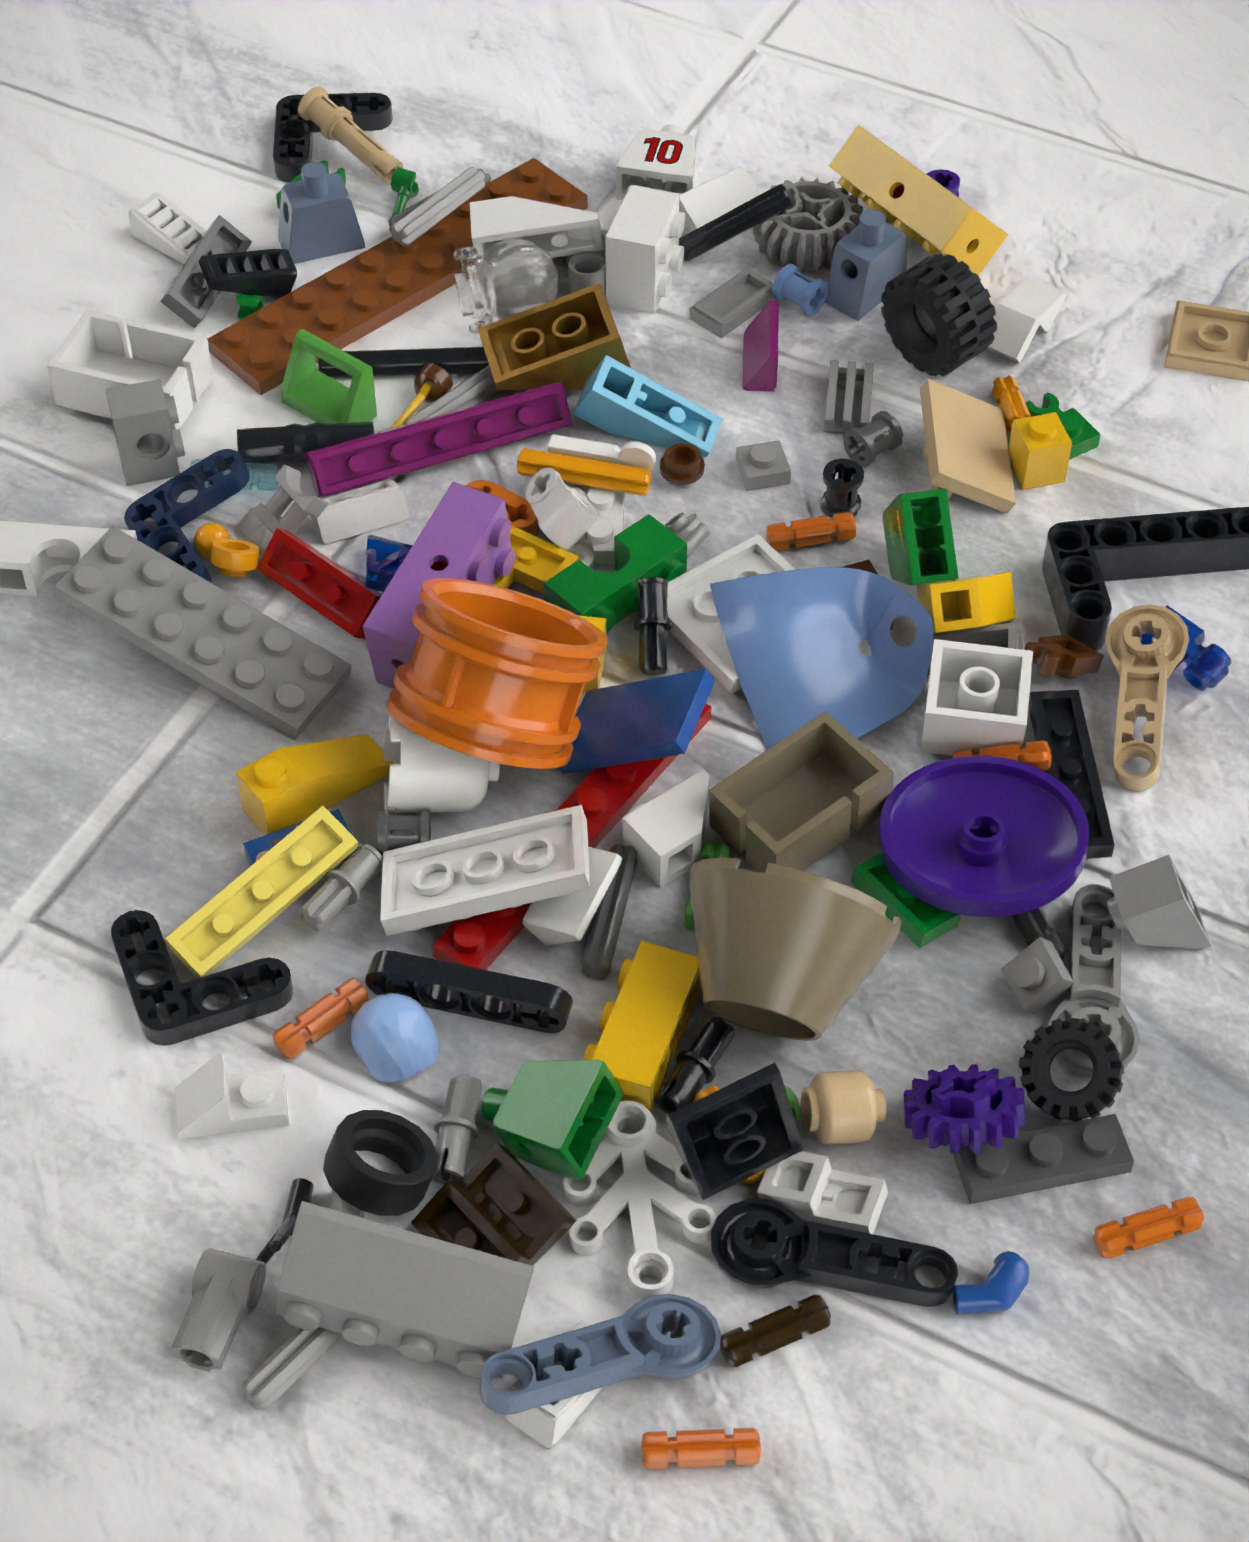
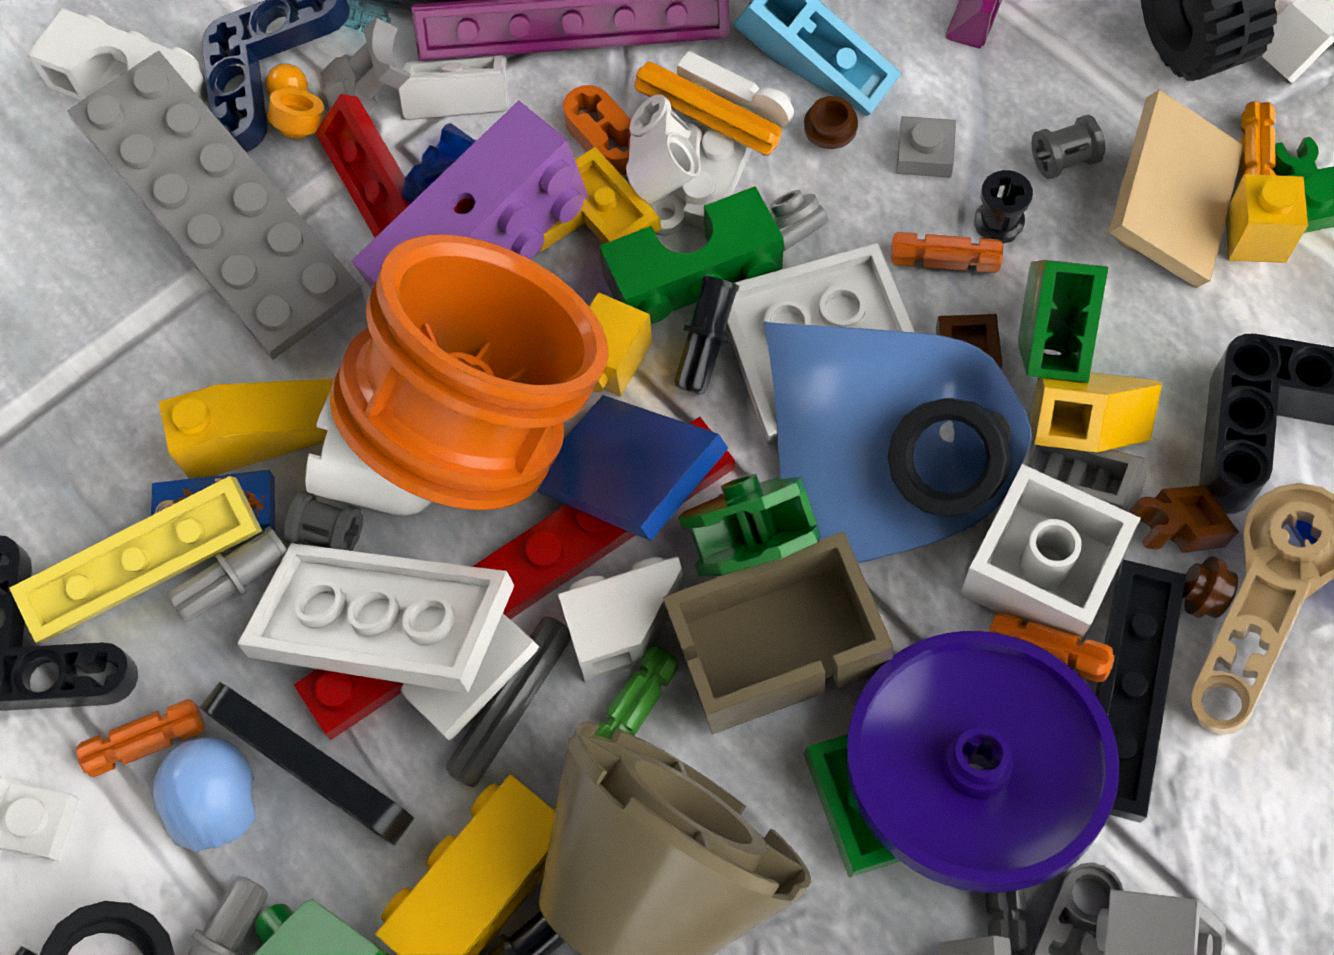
camera: 25 degrees right, 15 degrees up
(751, 727) = (751, 524): none -> green hinge
(851, 375) = (1076, 50): light grey tile -> none
(871, 616) = (903, 467): none -> black tyre
(1098, 696) = (1209, 588): none -> reddish brown plate

